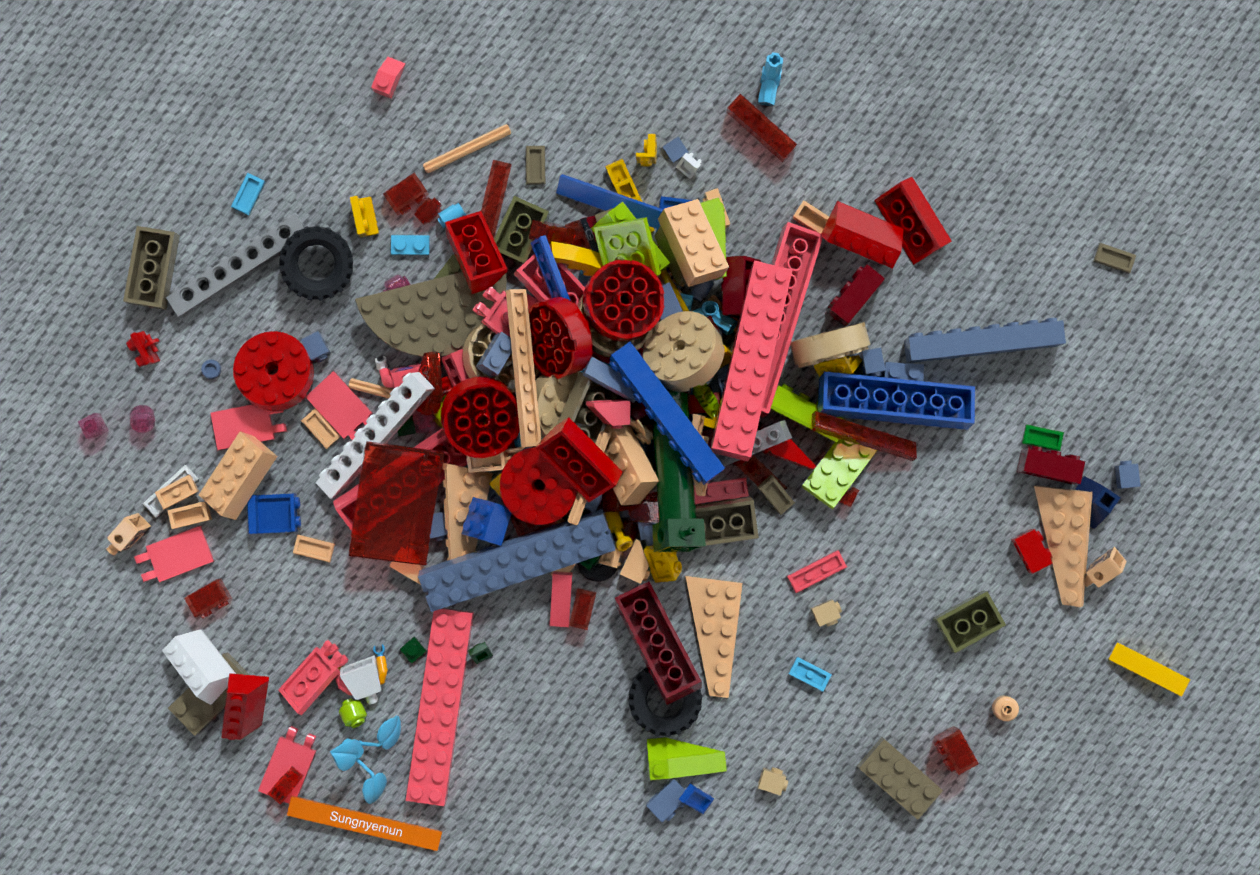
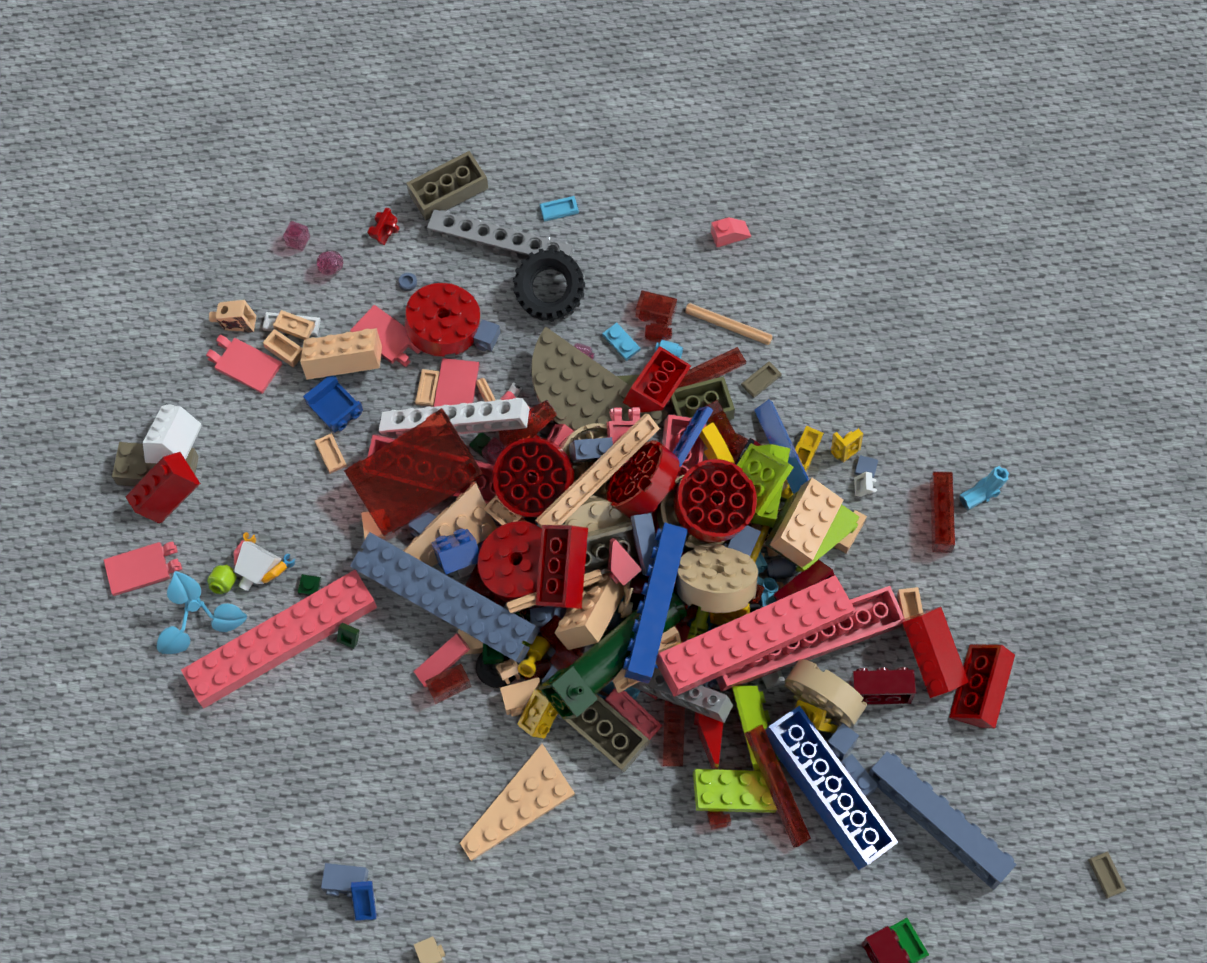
camera: 50 degrees right, 20 degrees down
(208, 598) = (229, 409): clear red brick -> none
(285, 785) = (123, 573): clear red leg -> none
(312, 676) = (228, 527): coral tile -> none
(364, 216) = (613, 292): yellow bracket -> none
(364, 823) = (138, 658): orange tile -> none
(656, 724) = (446, 827): black tyre -> none
(658, 643) = (467, 759): dark red brick -> none
(677, 759) = (385, 859): lime wedge -> none
(775, 494) = (669, 759): dark tan tile -> none
(810, 673) = (545, 910): medium azure plate -> none
(817, 571) = (635, 846): coral tile -> none
(827, 613) = (608, 881): tan brick -> none

